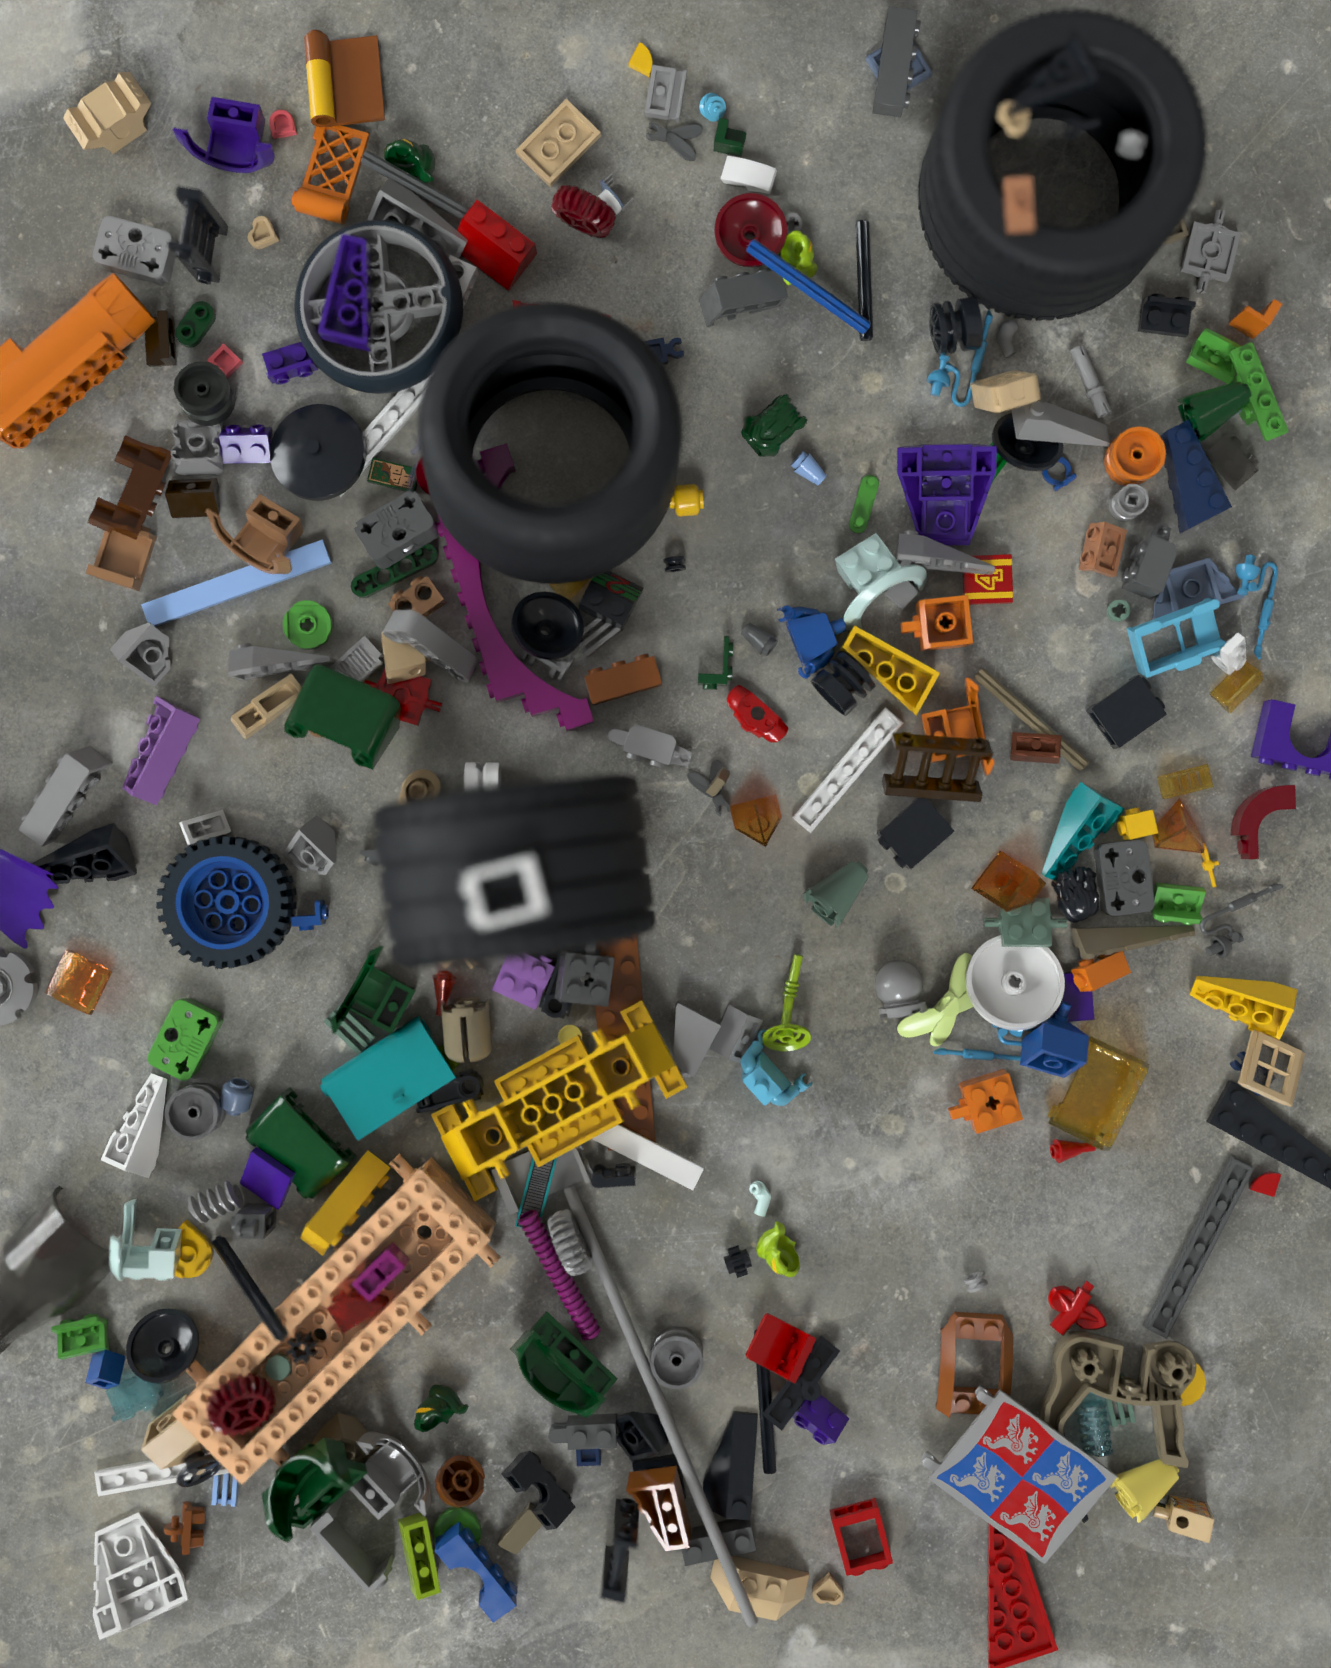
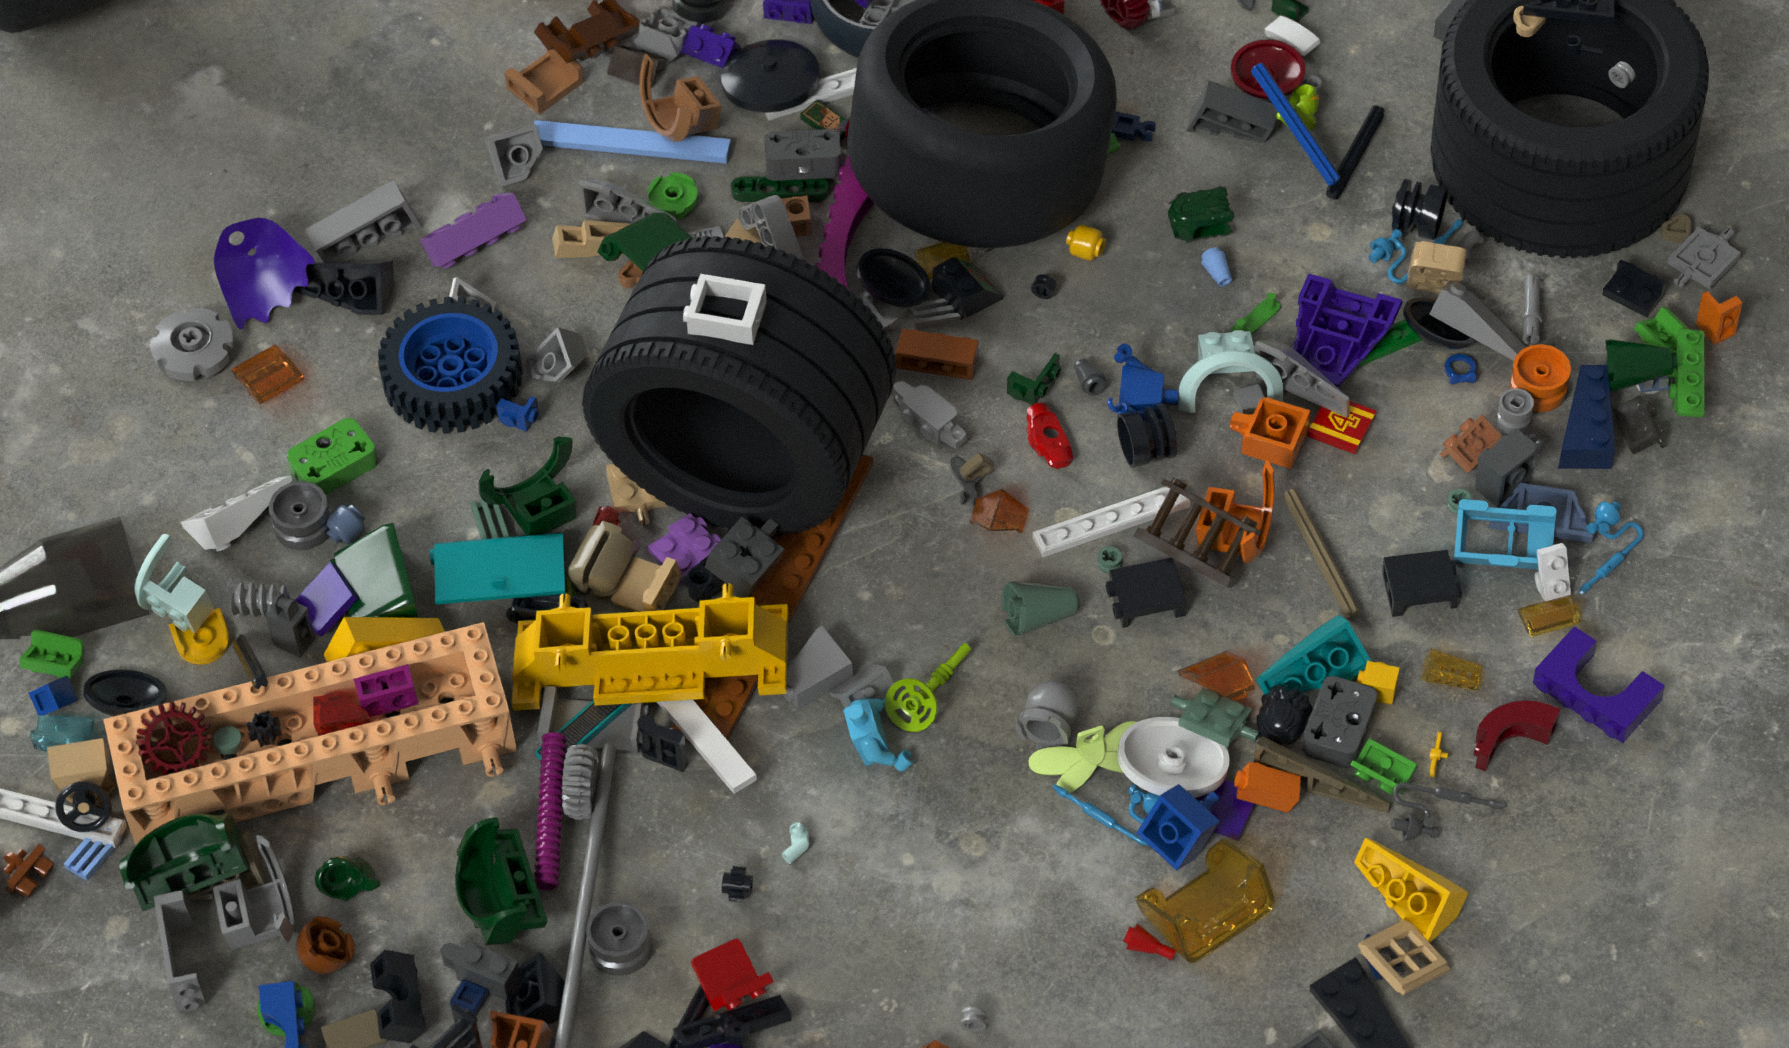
camera: 30 degrees right, 35 degrees down
(419, 1556) = (235, 999): lime brick -> none
(515, 1031) = (647, 585): none -> tan bracket
(779, 1251) = (785, 892): lime hair -> none
(863, 805) = (1110, 553): none -> sand green bush
(896, 671) = (1208, 449): yellow wedge -> none
(976, 1095) = (1082, 855): orange hinge -> none
(1019, 205) = (1497, 80): nougat plate -> none
(1036, 747) = (1310, 575): copper slope -> none
(1178, 831) = (1420, 707): clear orange slope -> none

